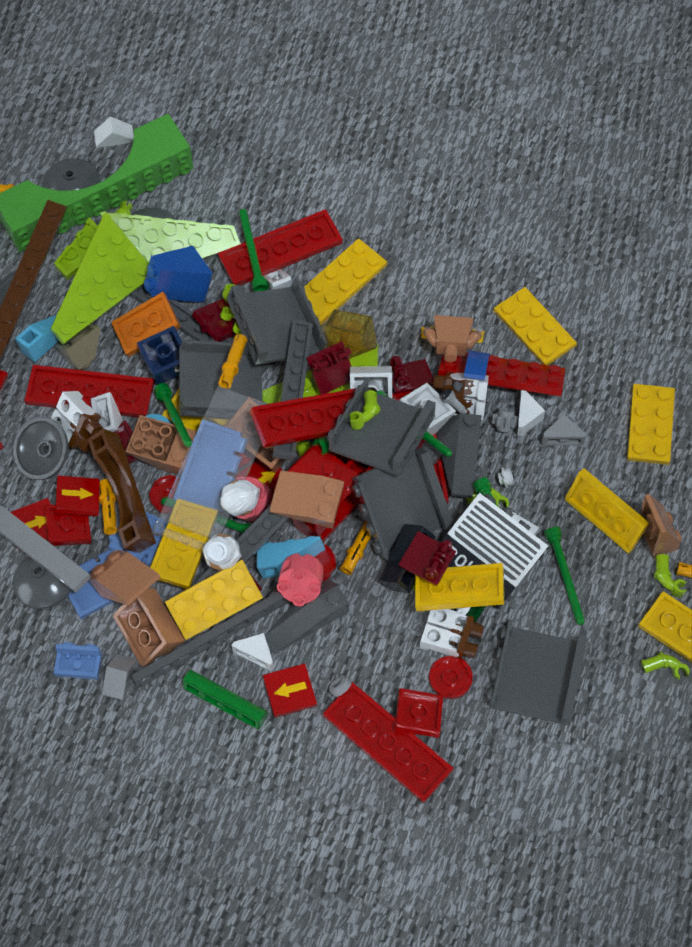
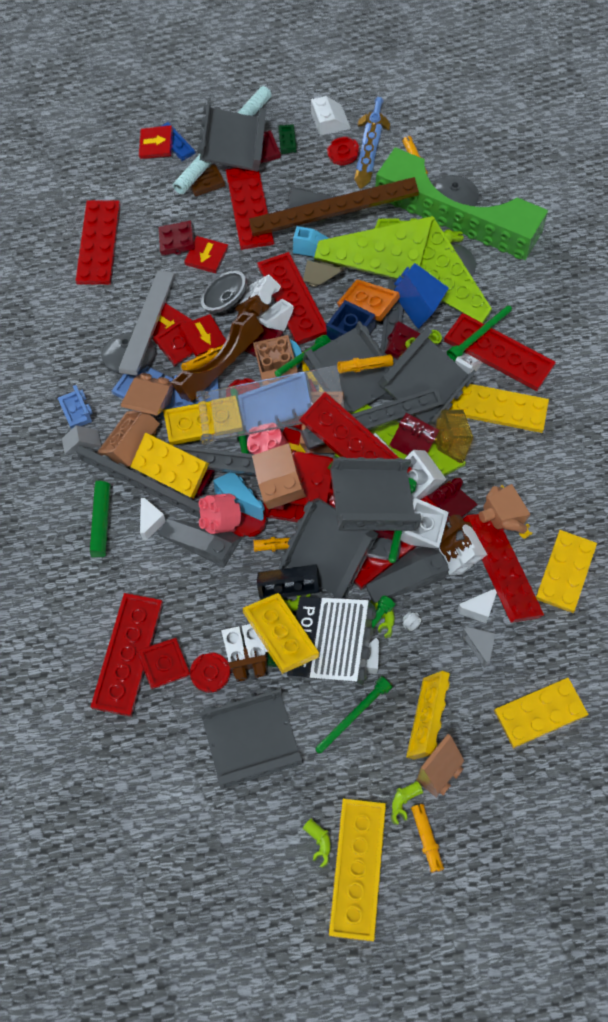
camera: 60 degrees right, 0 degrees up
(113, 133) = (511, 191): white slope -> none
(221, 551) = (201, 444): white hair -> none
(239, 497) = (256, 432): white hair -> none
(289, 690) = (133, 561): red tile -> none
(339, 686) = (154, 593): light grey tile -> none
(370, 410) = (384, 477): lime piece -> none
(428, 558) = (289, 594): dark red hinge -> none
(448, 396) = (445, 534): light grey piece -> none
(476, 365) = (487, 539): blue slope -> none
(505, 419) = (461, 591): light grey gear -> none

